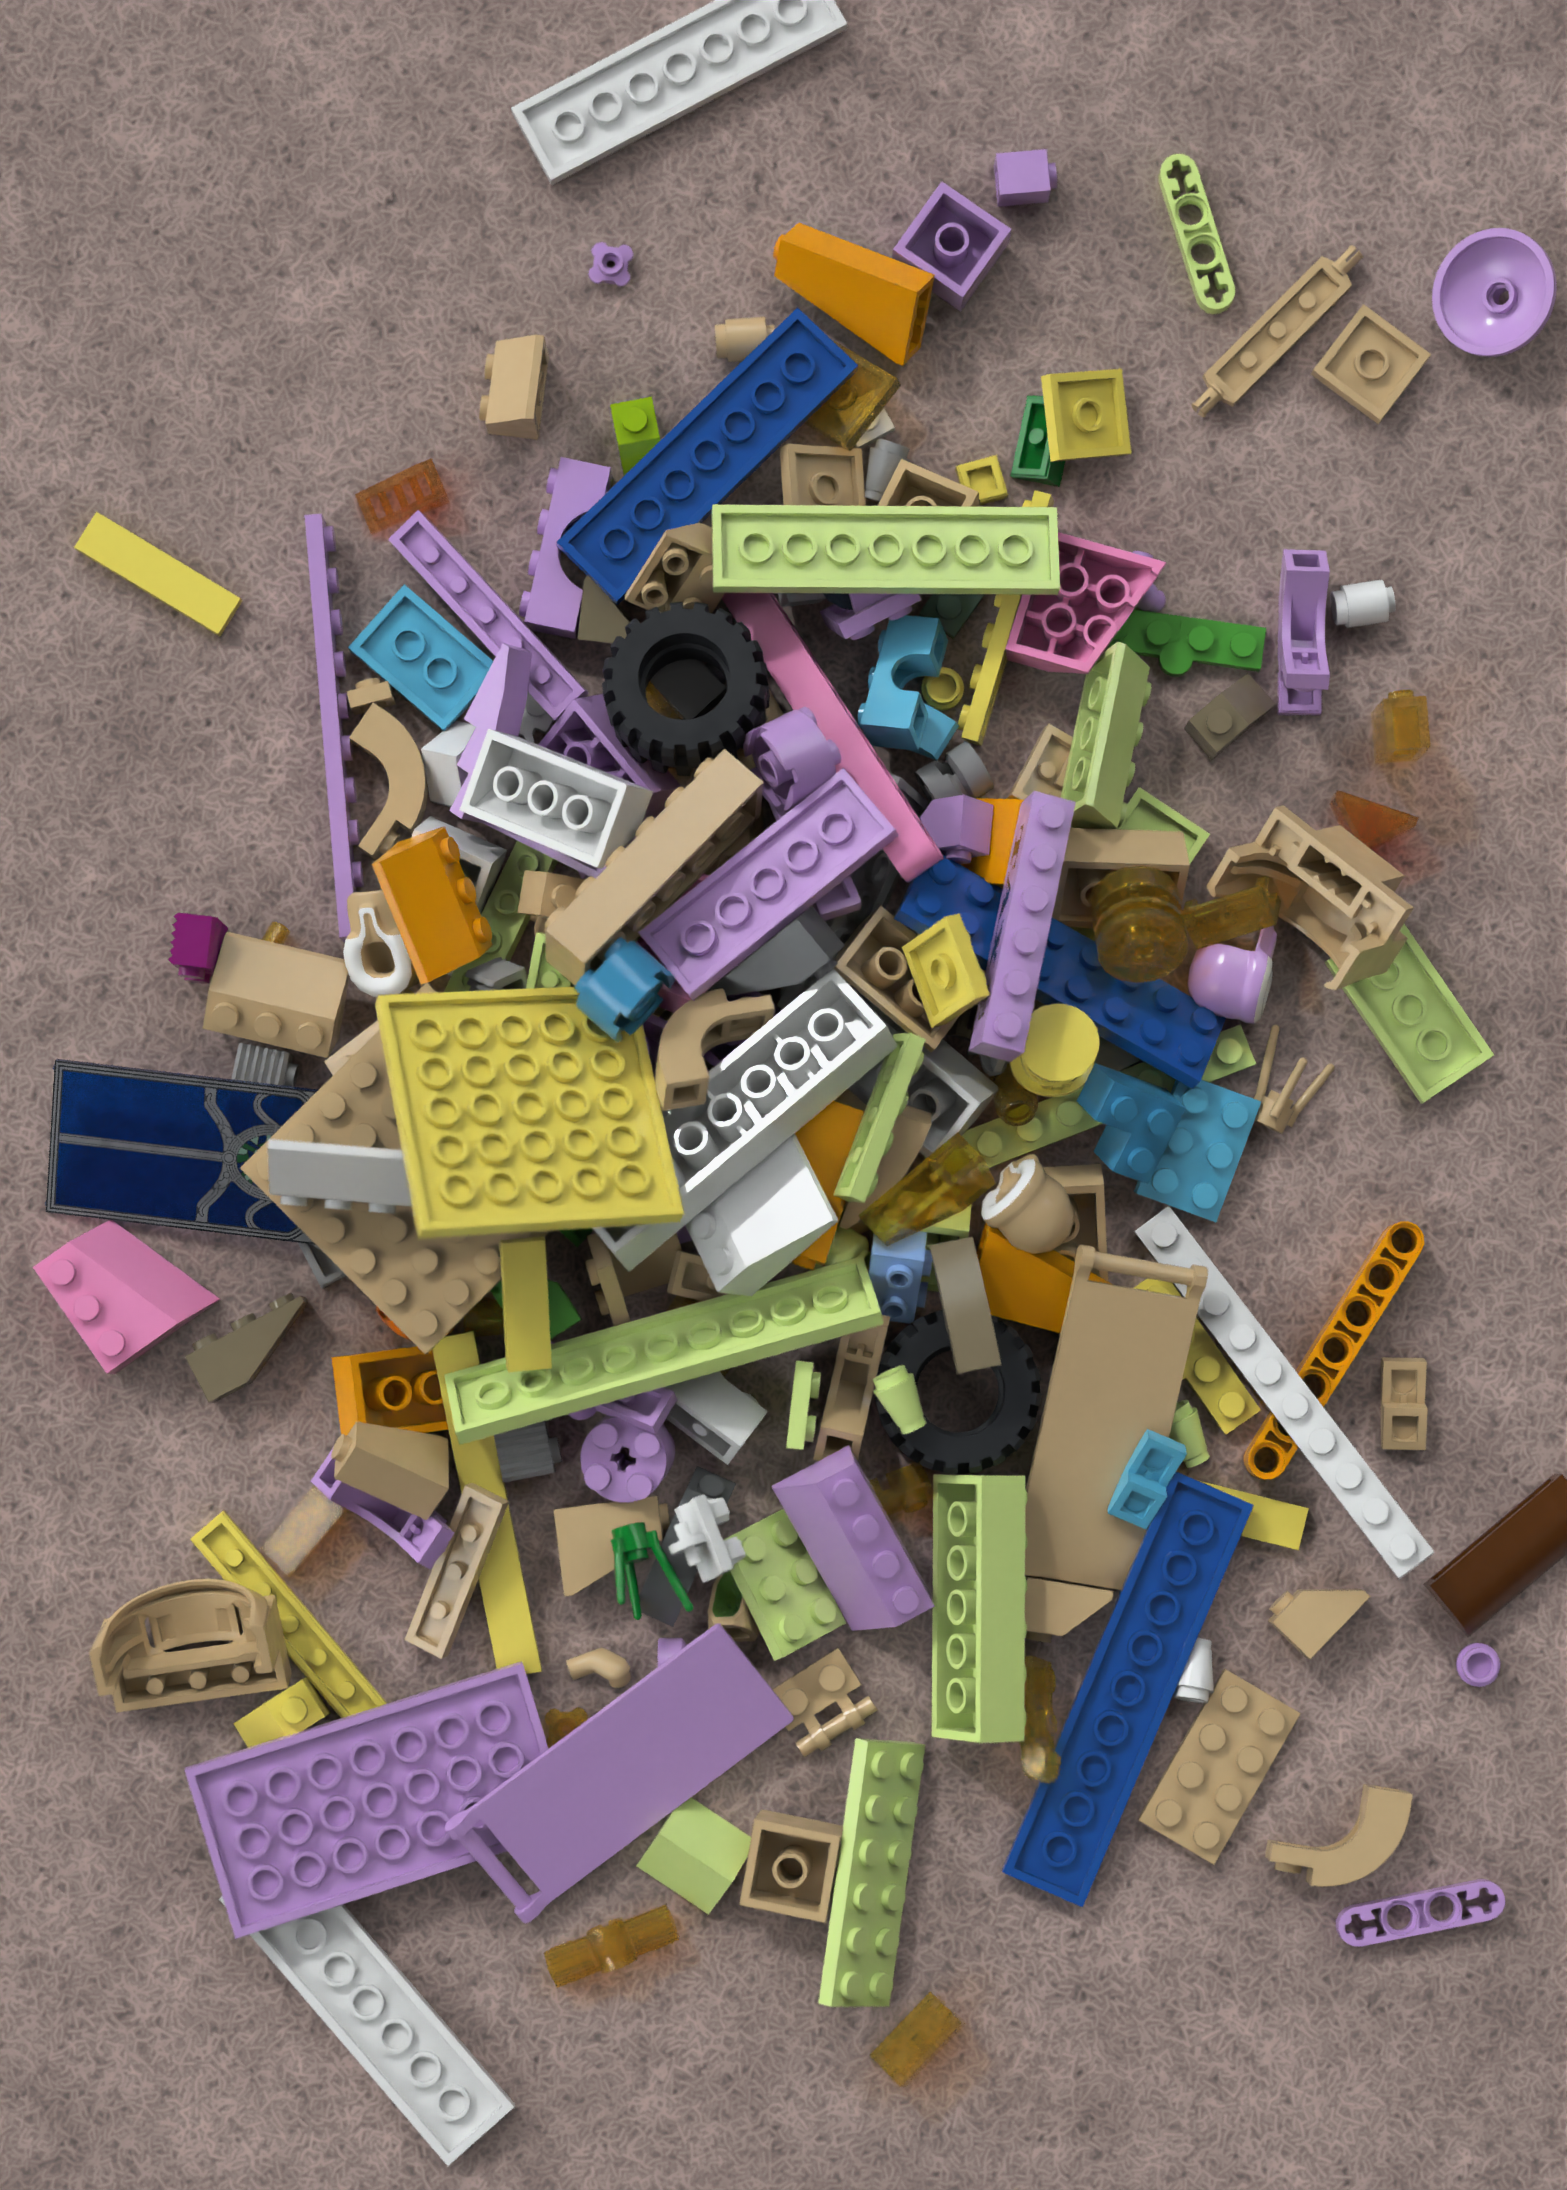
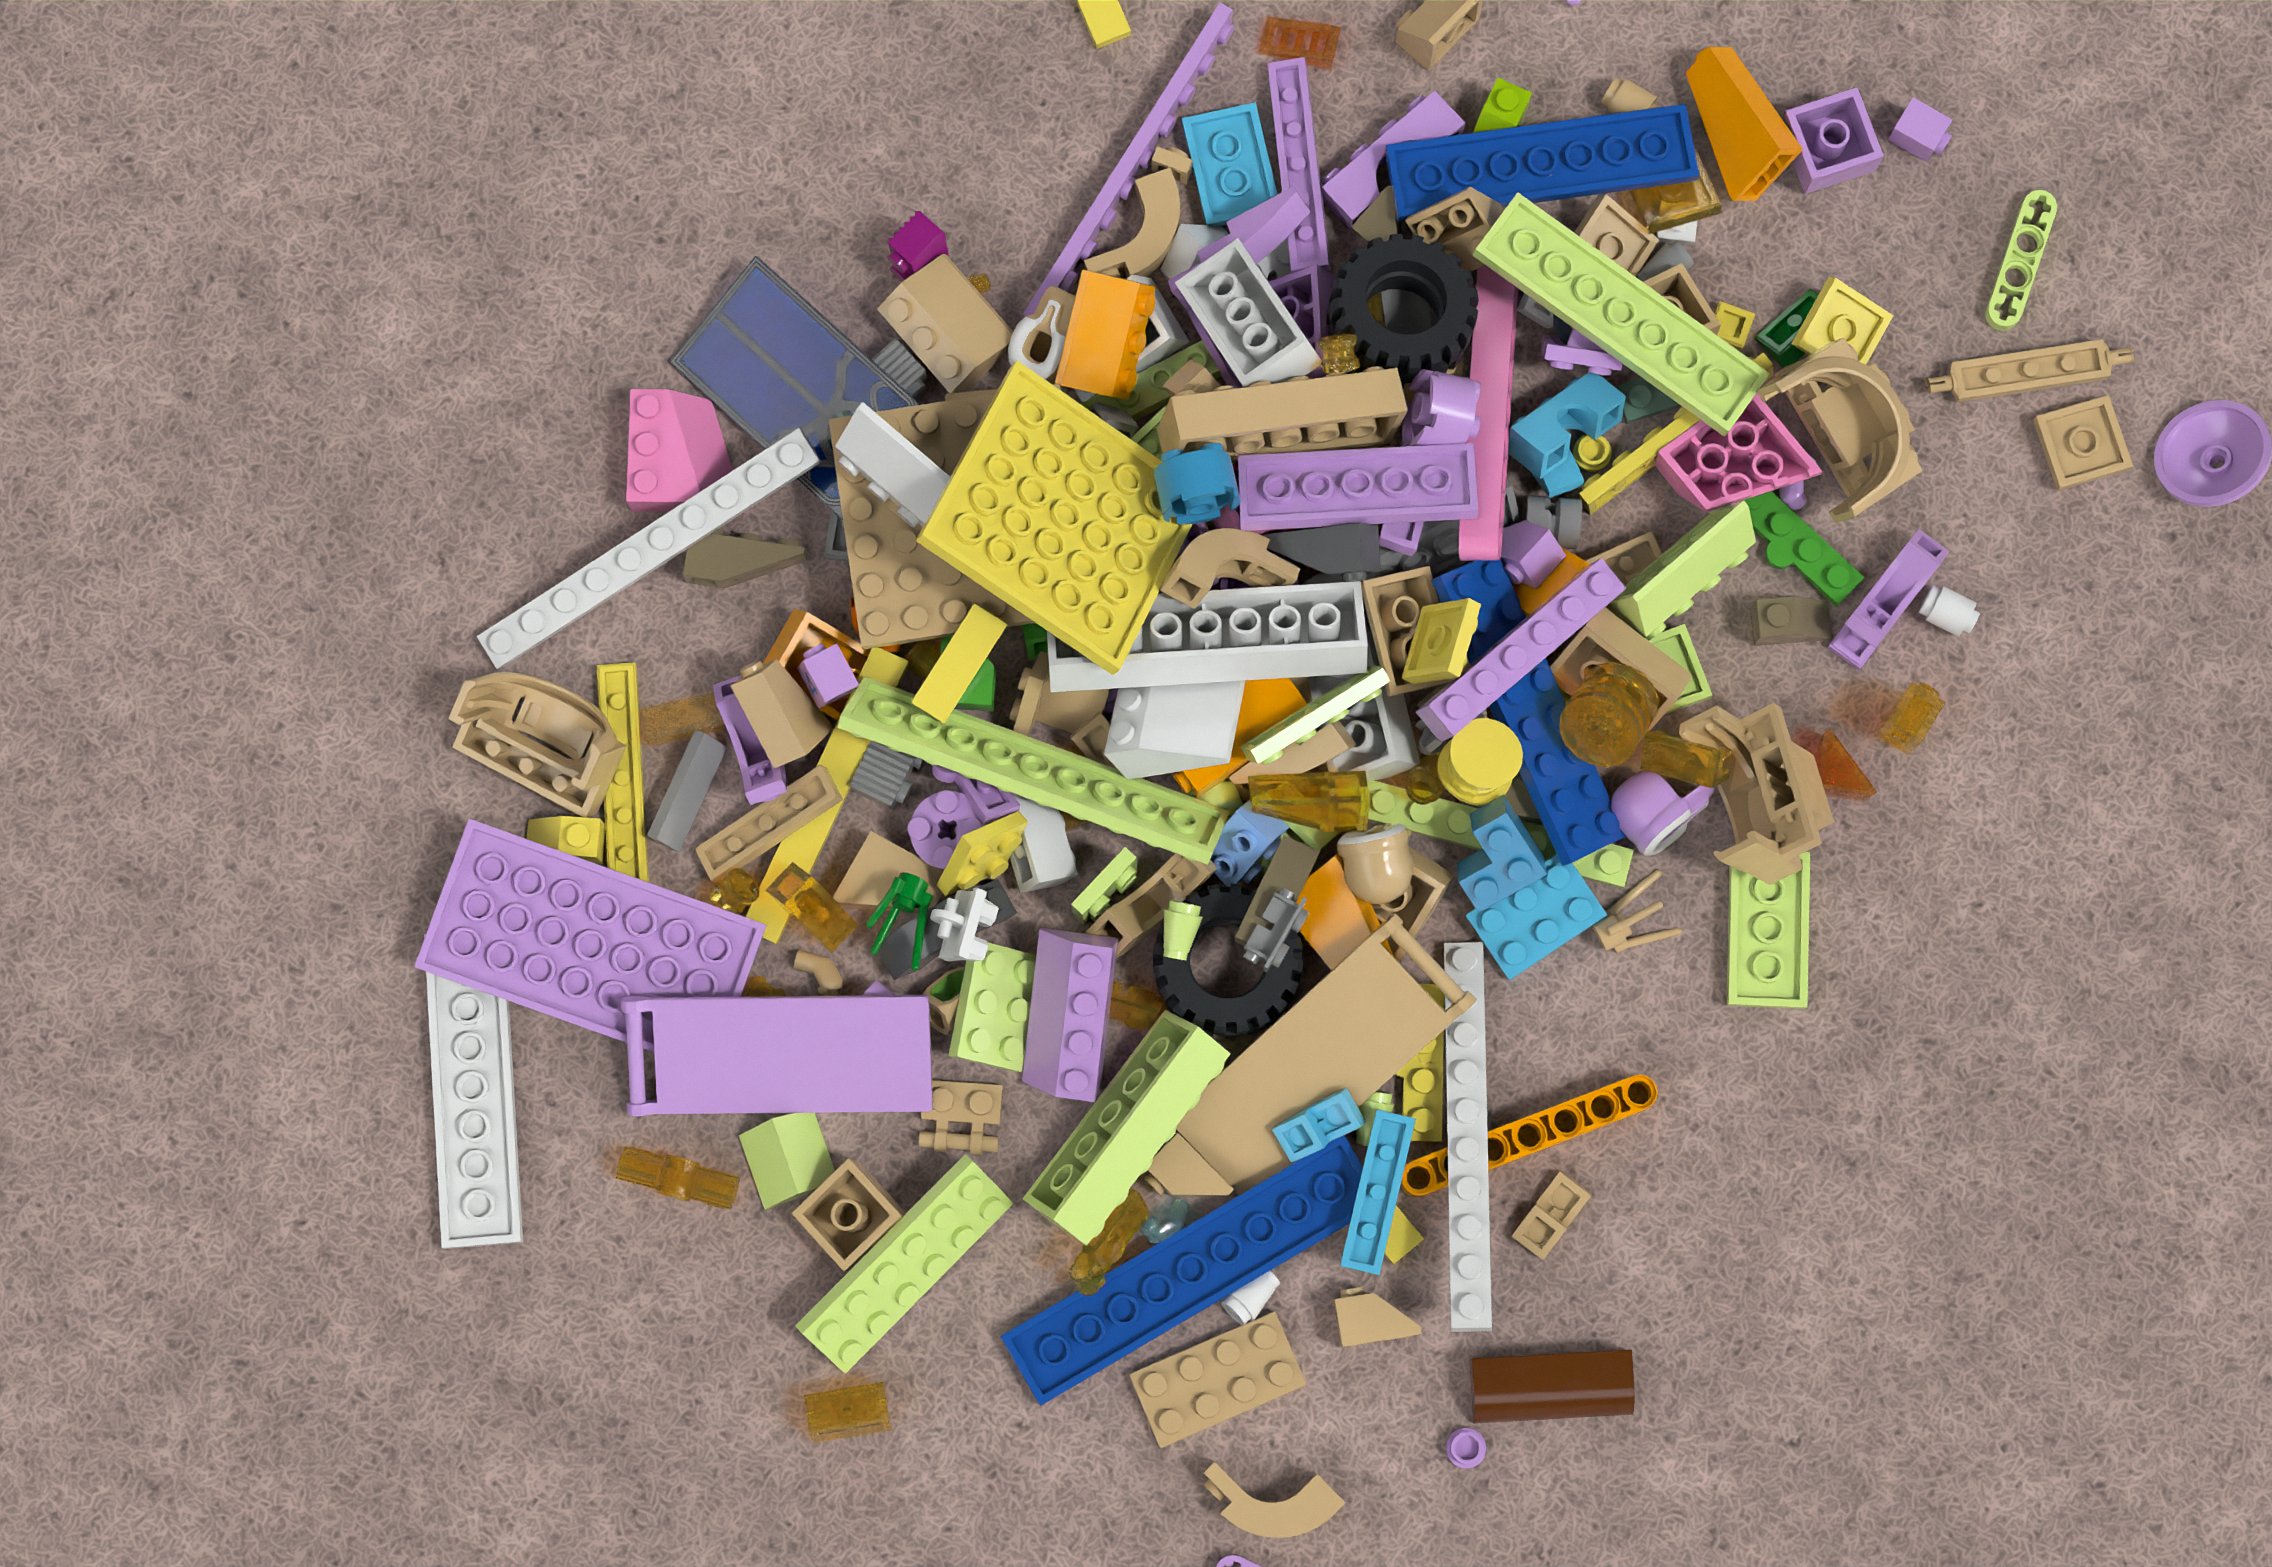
camera: 40 degrees right, 5 degrees down
(160, 1401) = (649, 548): none -> white plate
(358, 1593) = (687, 791): none -> light grey tile
(410, 1400) = (827, 674): none -> lavender brick
(470, 1652) = (735, 891): none -> clear yellow wheel
(552, 1618) = (812, 907): none -> clear yellow brick
(662, 774) = (1338, 353): none -> clear yellow wheel
(672, 1459) = (982, 853): none -> light yellow plate
(990, 1323) = (1269, 944): none -> light grey hinge
(1079, 1663) = (1172, 1223): none -> clear light blue arm
(1153, 496) = (1849, 421): none -> tan piece
(1243, 1502) = (1377, 1192): none -> medium azure plate

